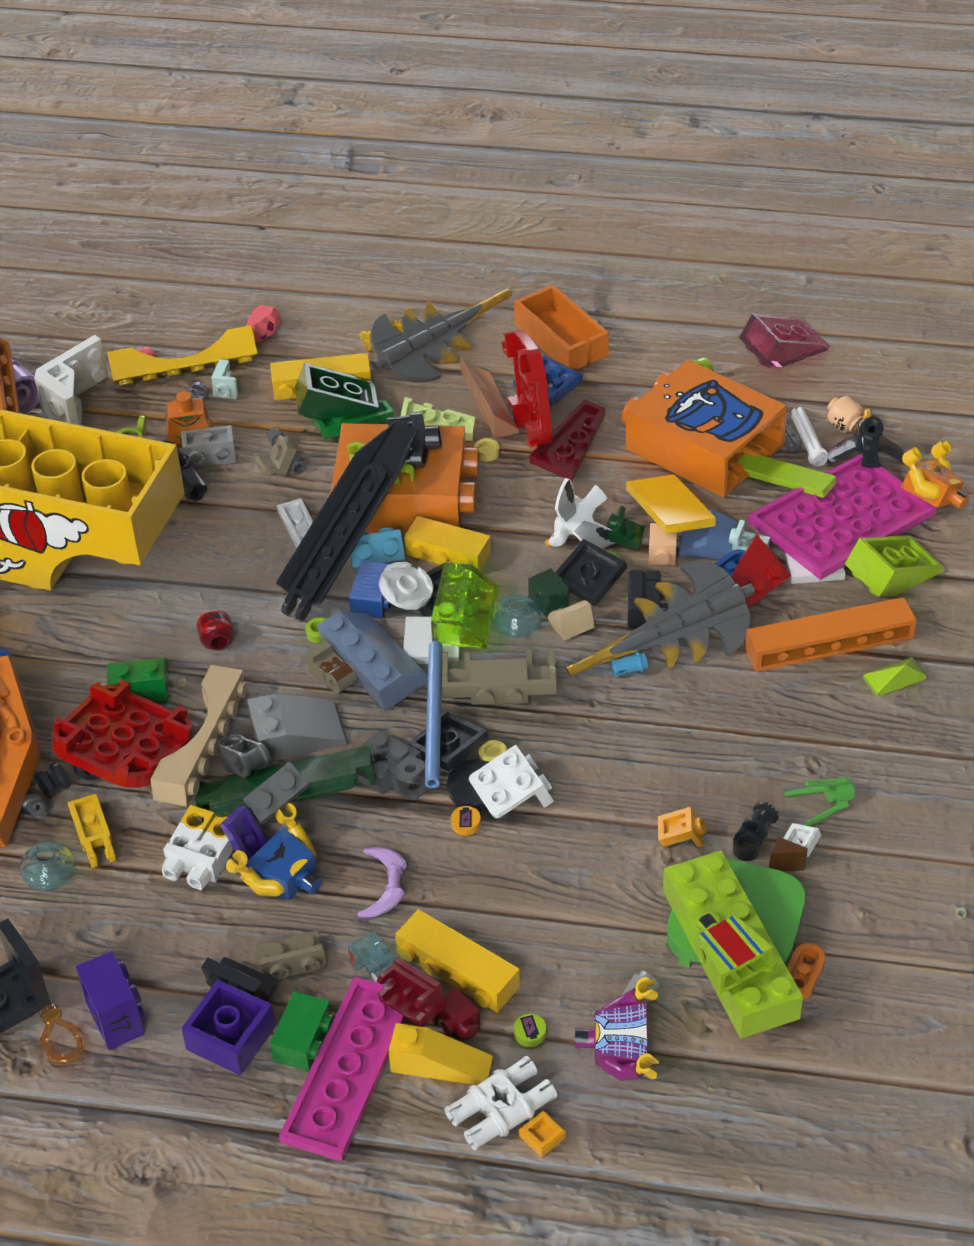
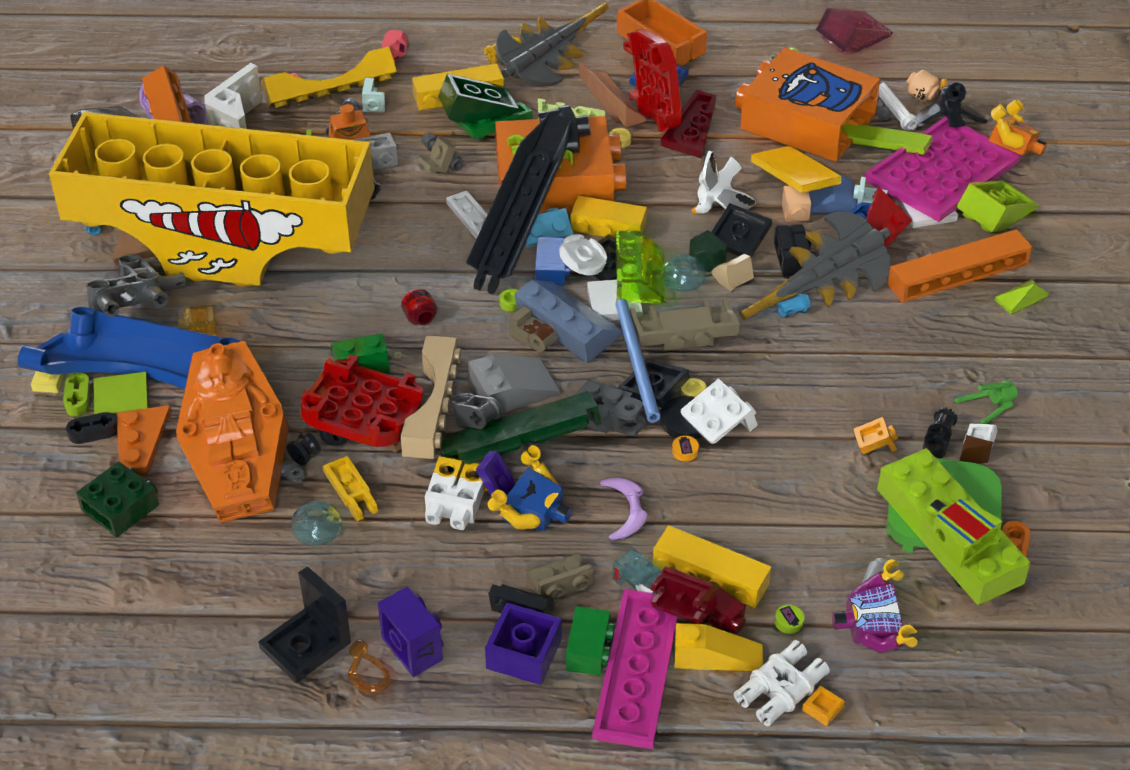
camera: 10 degrees left, 0 degrees up
(276, 792) = (519, 437): dark grey plate -> none
(624, 531) = (760, 195): dark green bracket -> none

